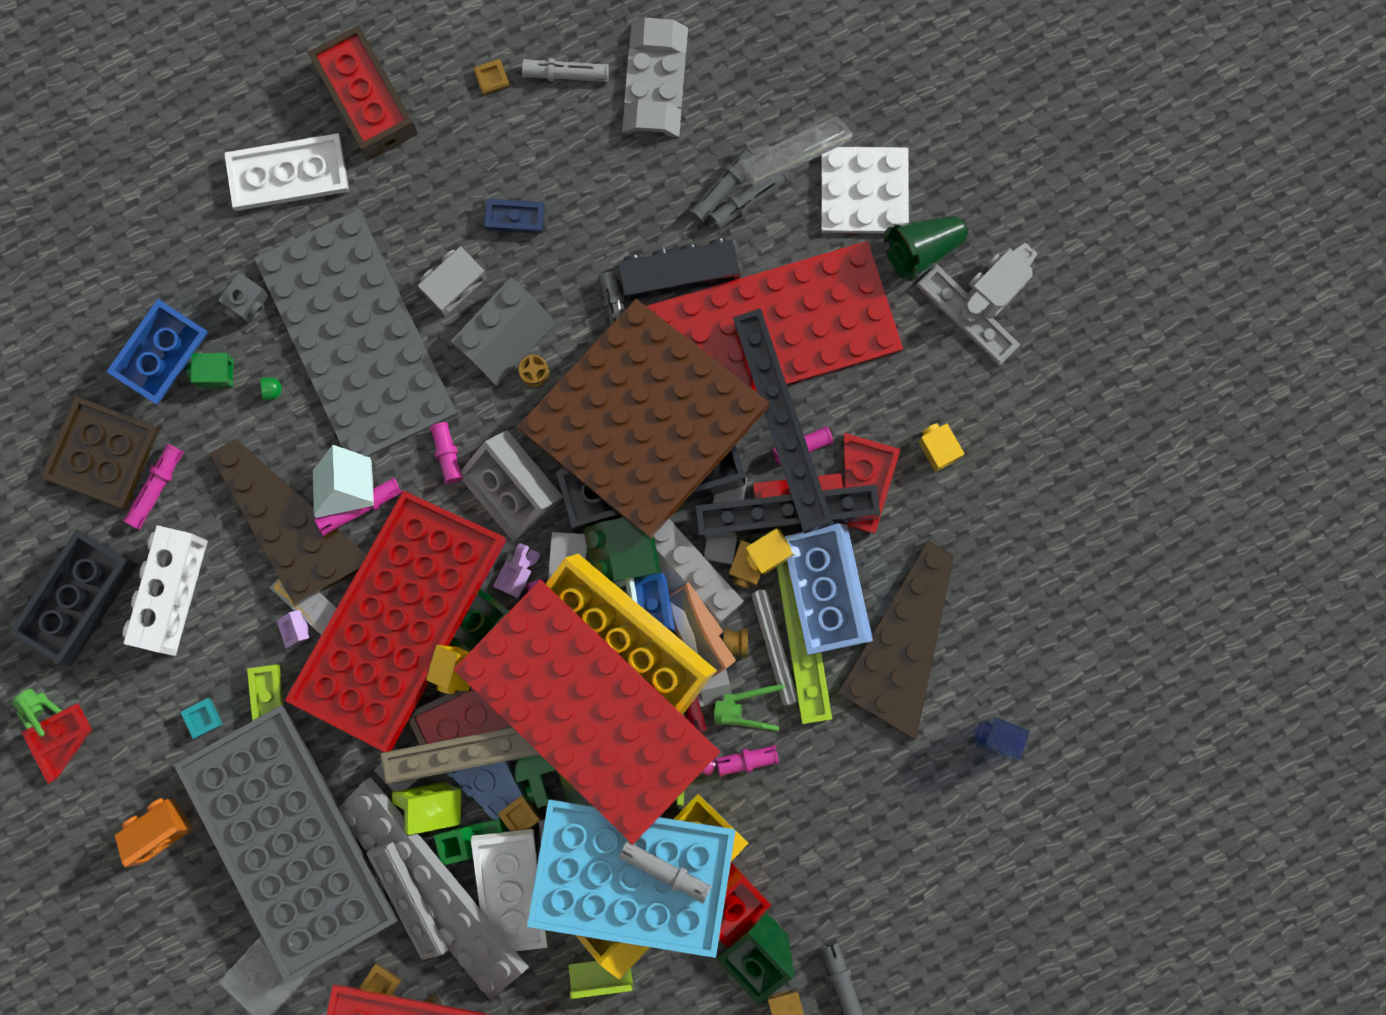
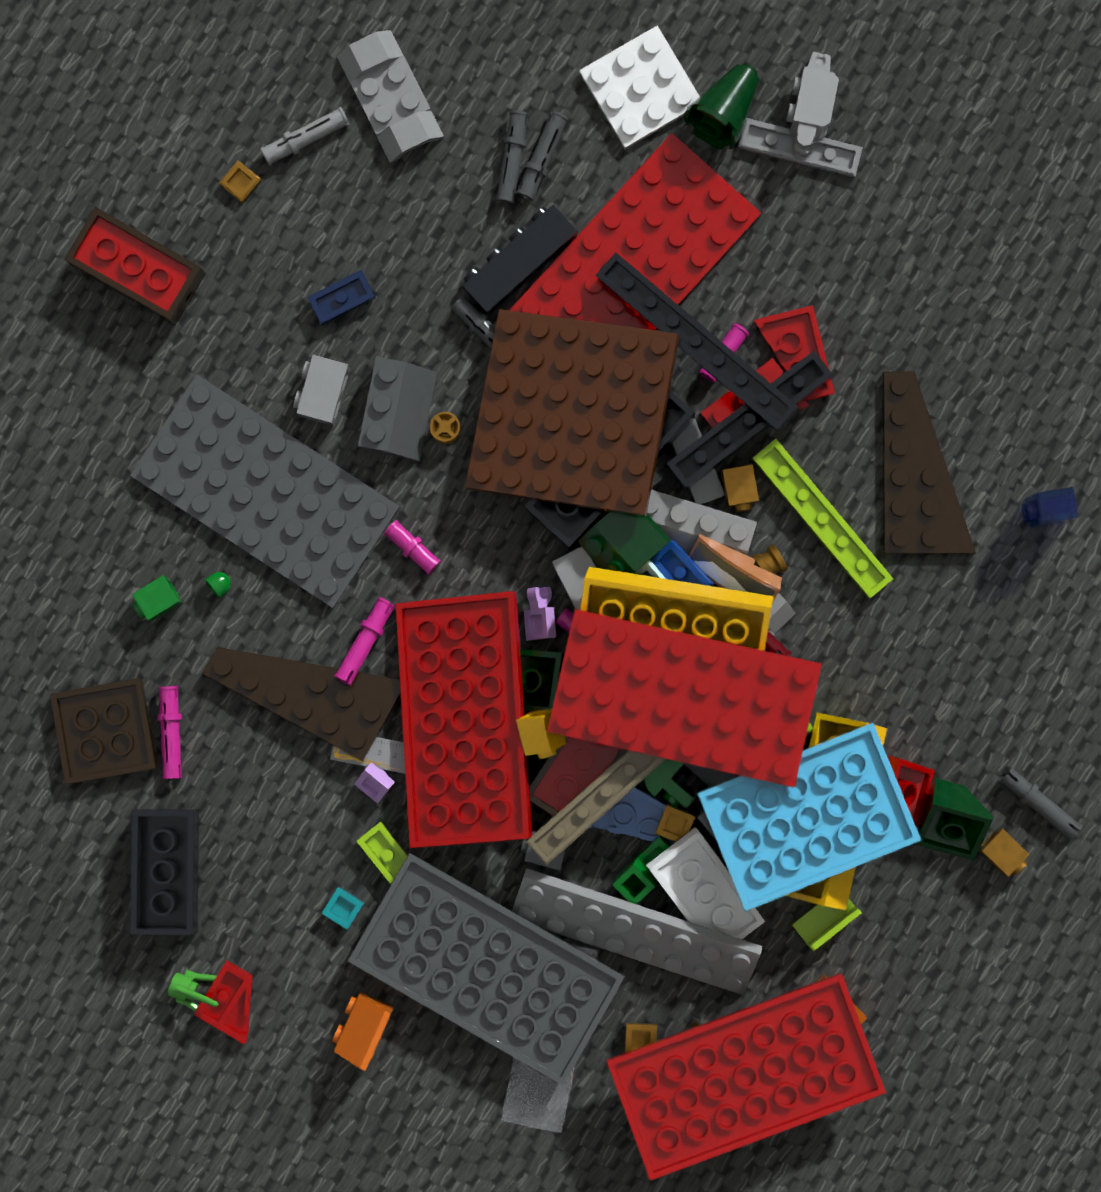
camera: 30 degrees left, 5 degrees up
(157, 351) = (102, 611): blue slope -> none
(164, 590) = (257, 828): white brick -> none
(243, 299) = (138, 509): dark grey brick -> none
(286, 172) = (109, 379): white plate -> none
(342, 482) = (338, 629): light aqua slope -> none
(407, 901) = (622, 954): light grey tile -> none
(429, 807) = (591, 862): lime panel -> none
(509, 485) = (487, 542): light grey slope -> none
(665, 872) = (835, 794): light grey pin -> none
(730, 713) = (800, 626): bright green plant -> none
(747, 760) = (841, 658): dark pink pin -> none
(769, 552) = (755, 466): yellow brick -> none
(774, 646) = (805, 546): light grey axle -> none
(795, 151) = (559, 88): clear tile -> none
(828, 589) = (823, 468): light blue slope -> none
(940, 446) = (846, 281): yellow brick -> none

